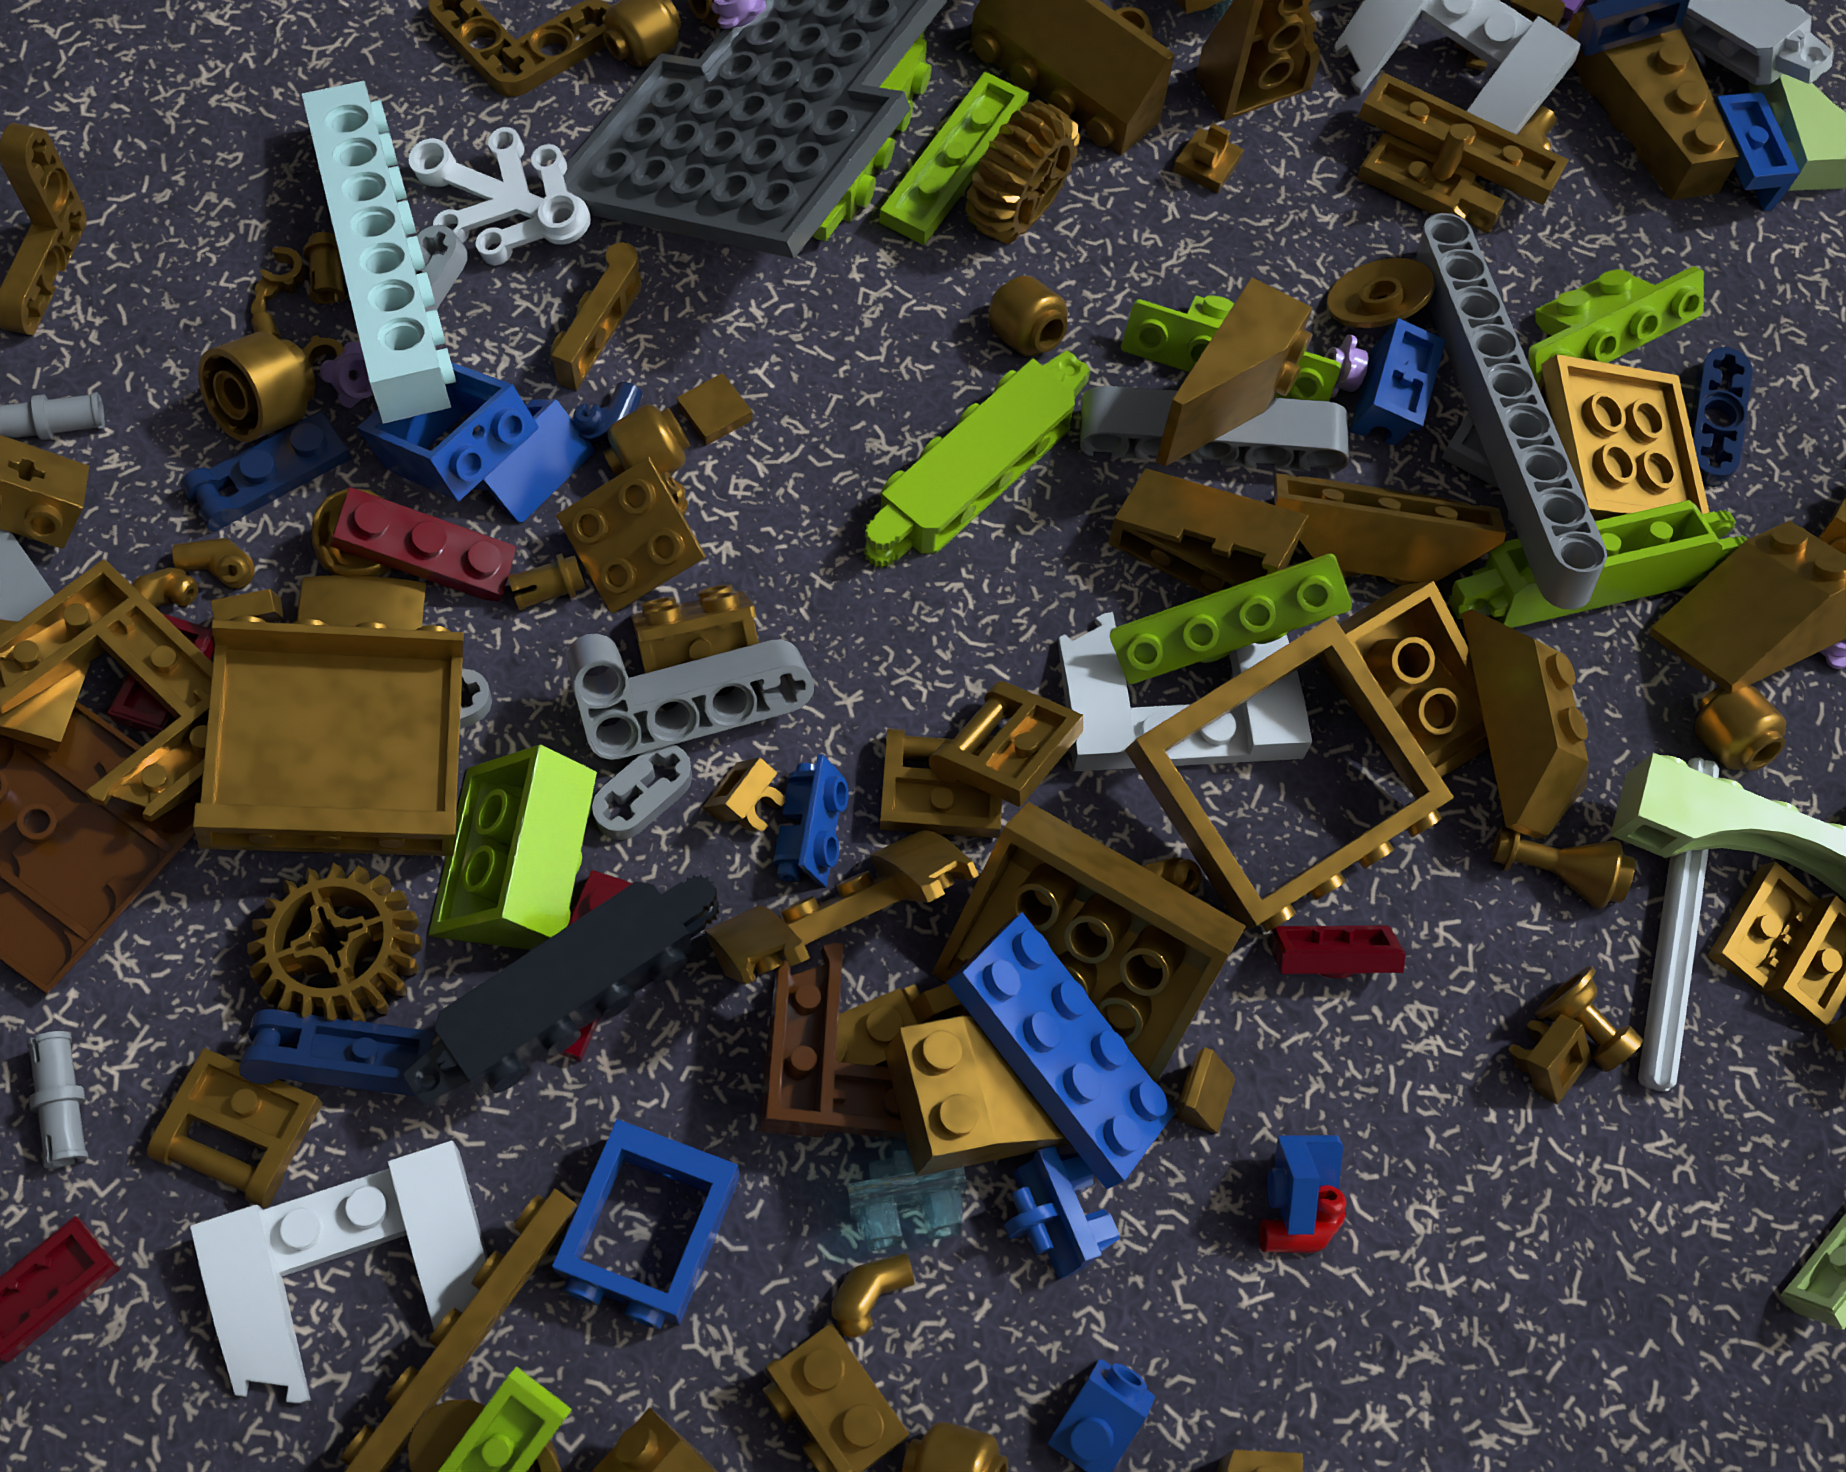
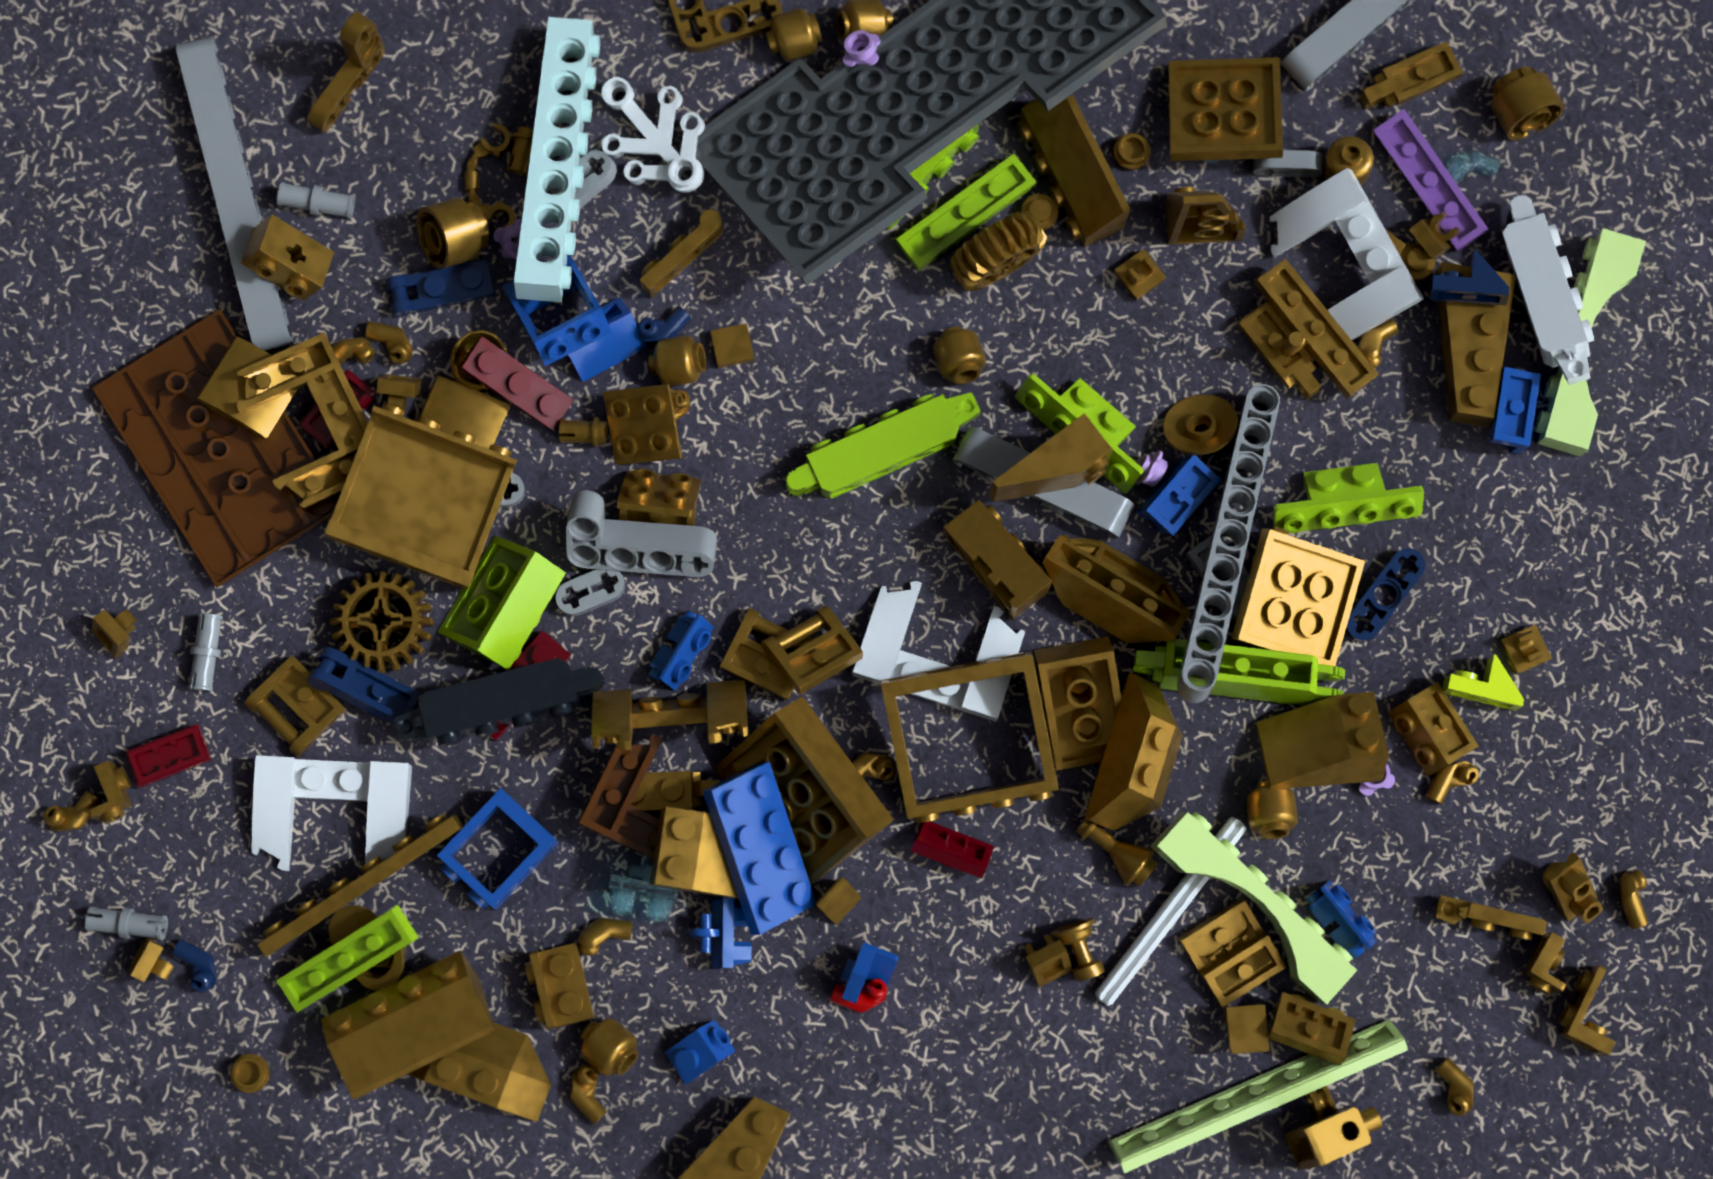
camera: 25 degrees right, 15 degrees up
(741, 790) = (647, 615): pearl gold tile -> none
(1231, 619) = (975, 628): lime bracket -> none

